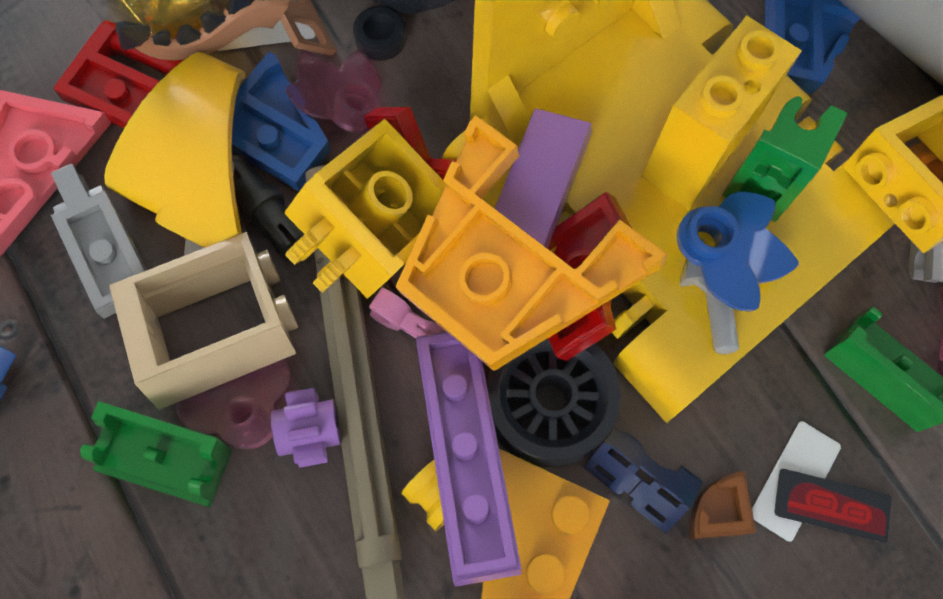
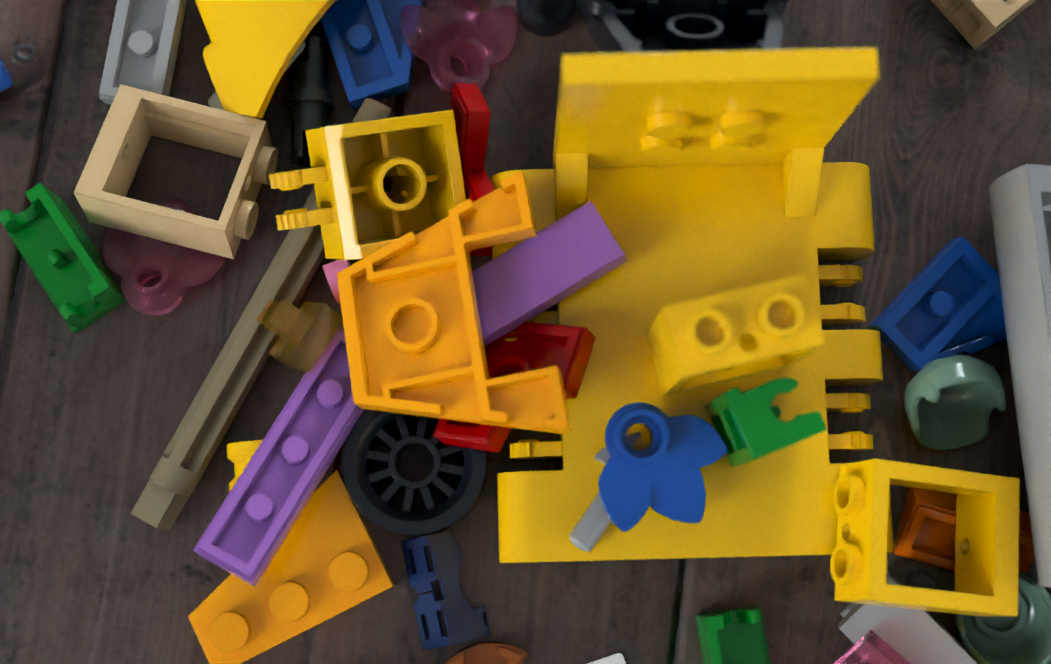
camera: 40 degrees right, 10 degrees up
(305, 427) = (192, 329): medium lavender gear -> none
(392, 363) = (301, 331): none -> clear yellow tile
(859, 84) = (952, 402): none -> sand green hair

